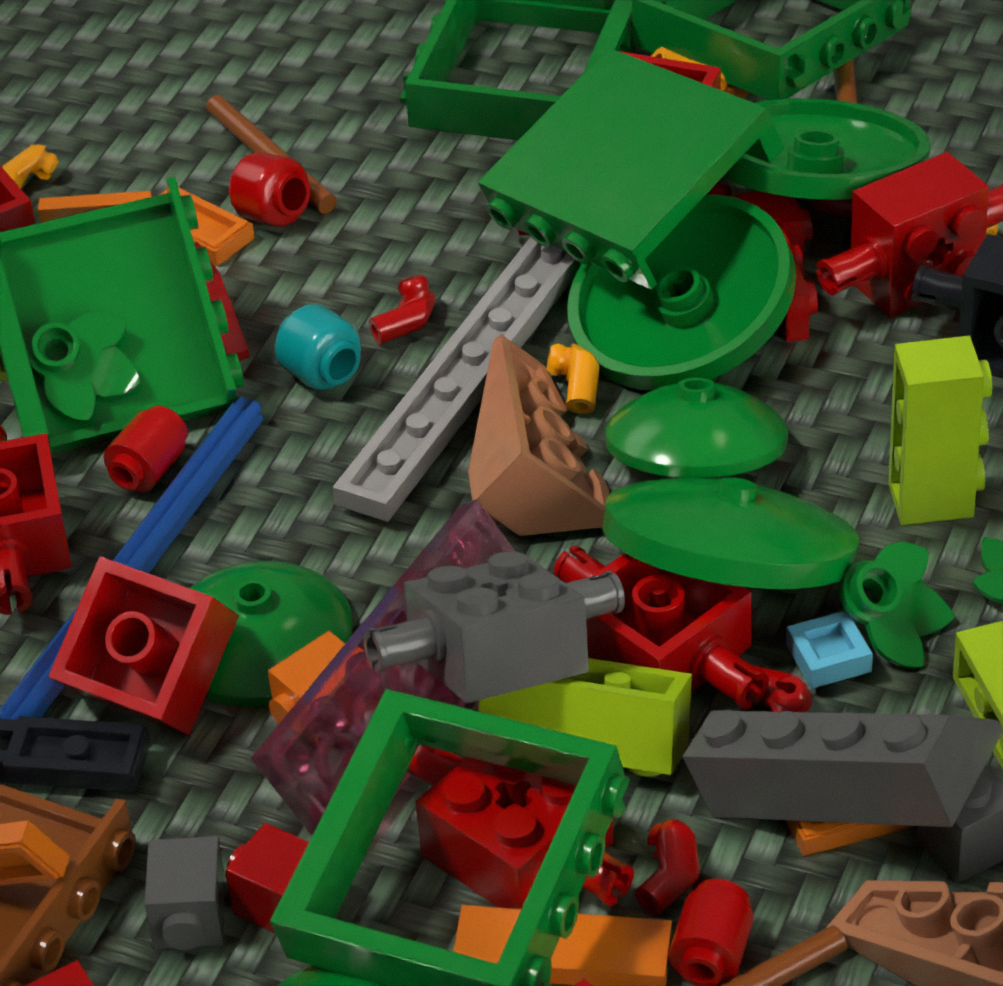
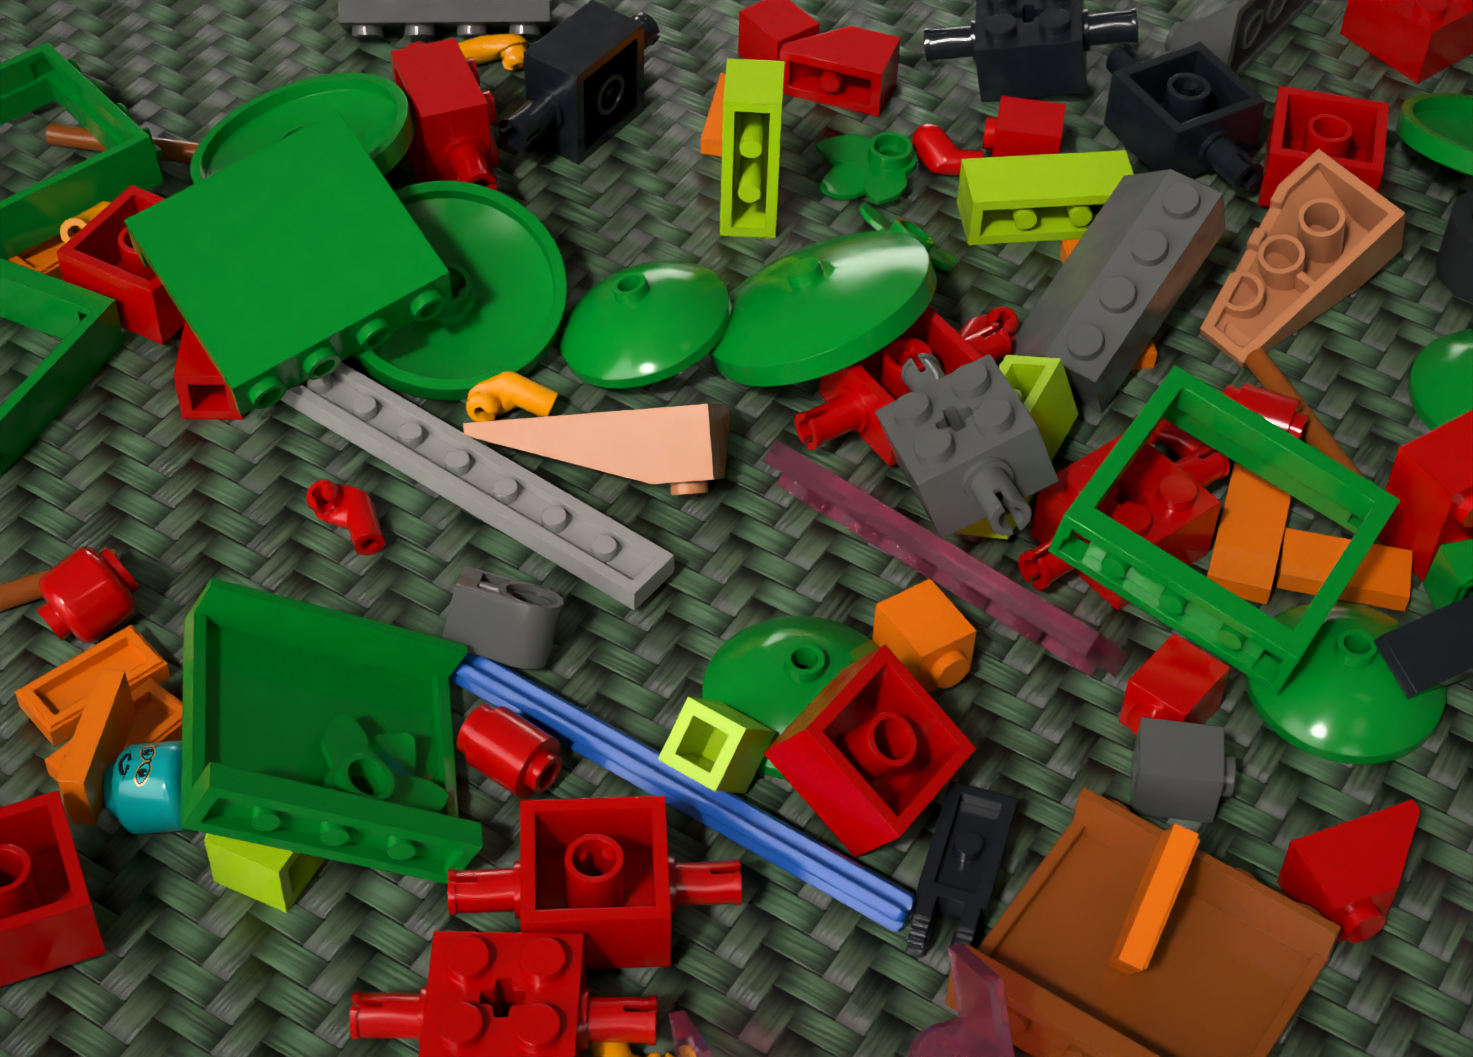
camera: 85 degrees left, 5 degrees up
(154, 544) = (716, 745): none -> lime brick
(282, 407) = (503, 618): none -> dark grey piece
(318, 347) = (403, 579): teal head -> none
(829, 649) = (953, 295): medium azure plate -> none

